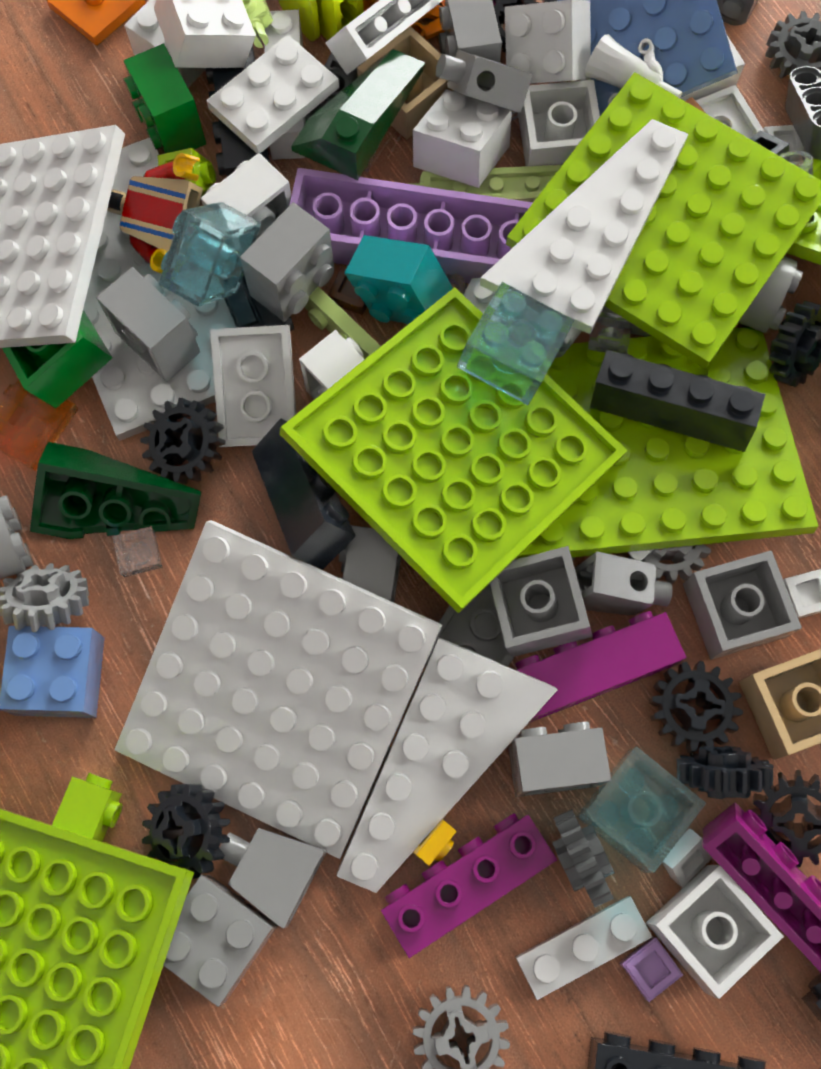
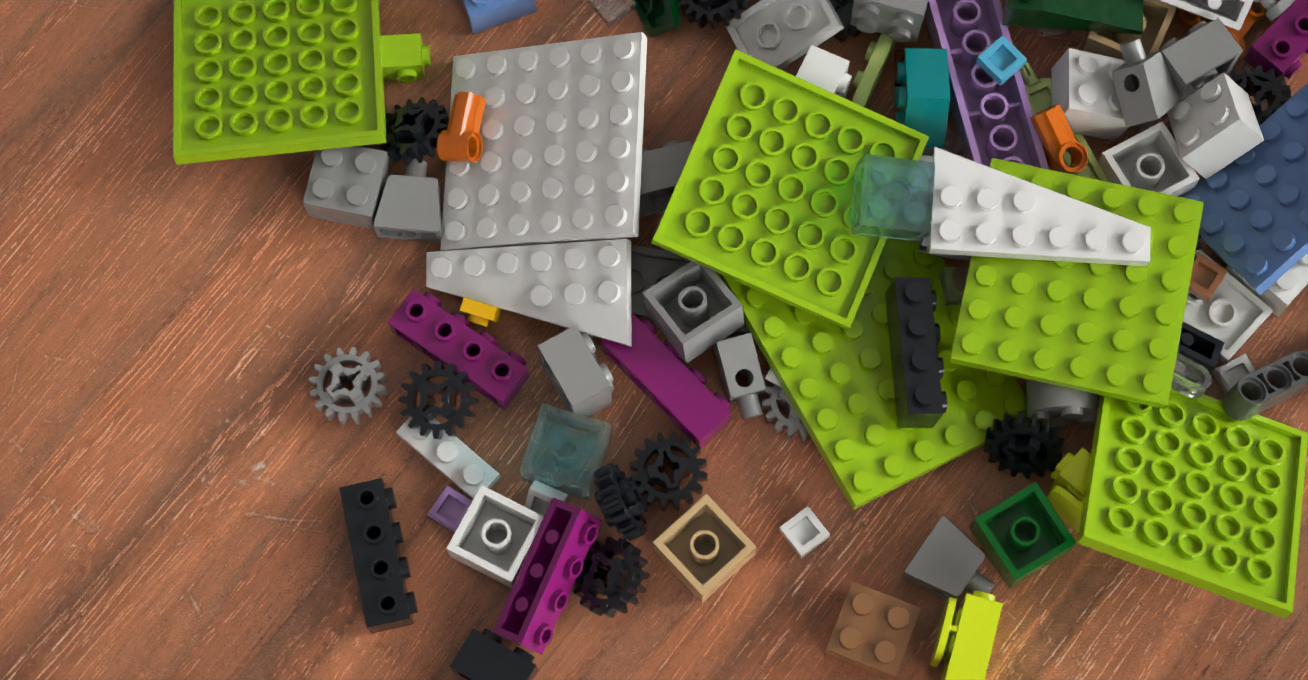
camera: 70 degrees right, 0 degrees up
(224, 778) = (462, 138): none -> orange piece
(303, 501) = (684, 105): black brick -> none
(399, 191) = (1001, 60): none -> medium azure plate
(502, 179) = (1056, 138): none -> orange piece
(546, 930) = (427, 409): none -> black gear
(583, 858) = (510, 418): dark grey gear -> none
(616, 65) = (1217, 191): white piece -> none
(741, 605) = (766, 474): light grey brick -> none

